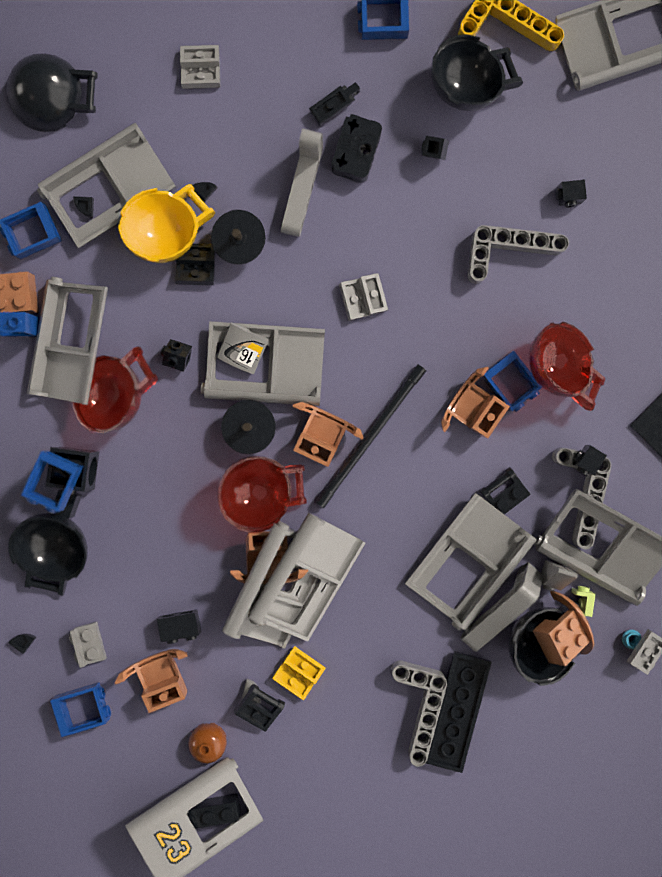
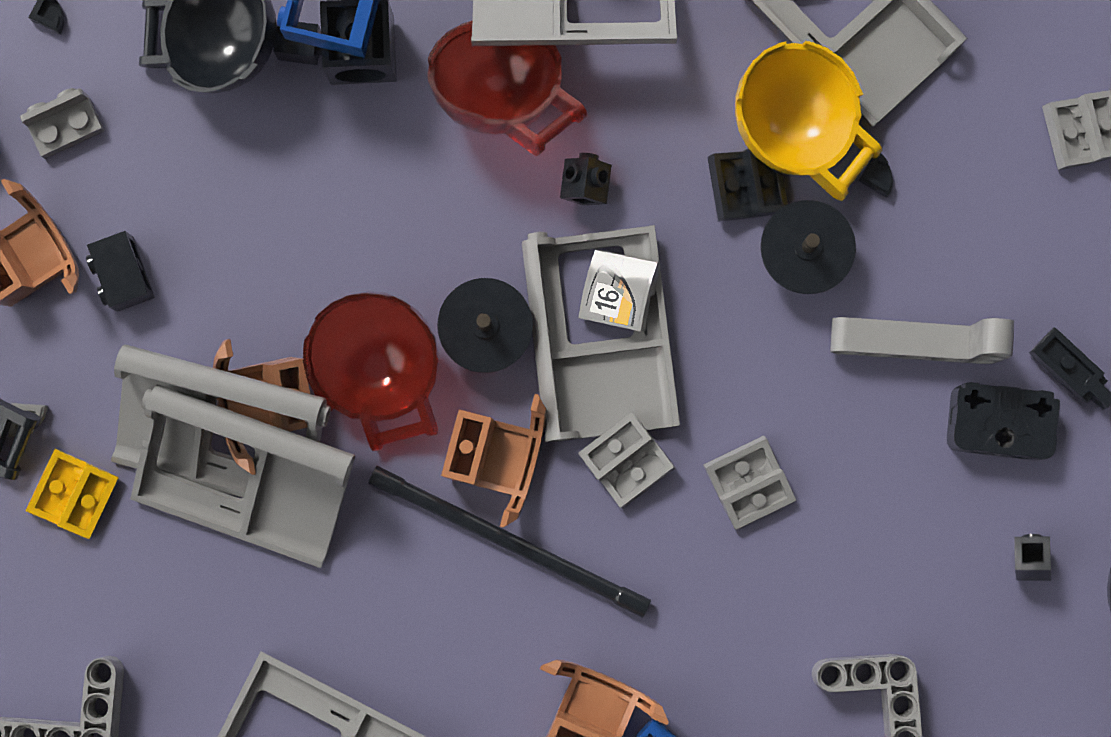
camera: 75 degrees right, 5 degrees down
(338, 362) = (627, 460): none -> light grey slope

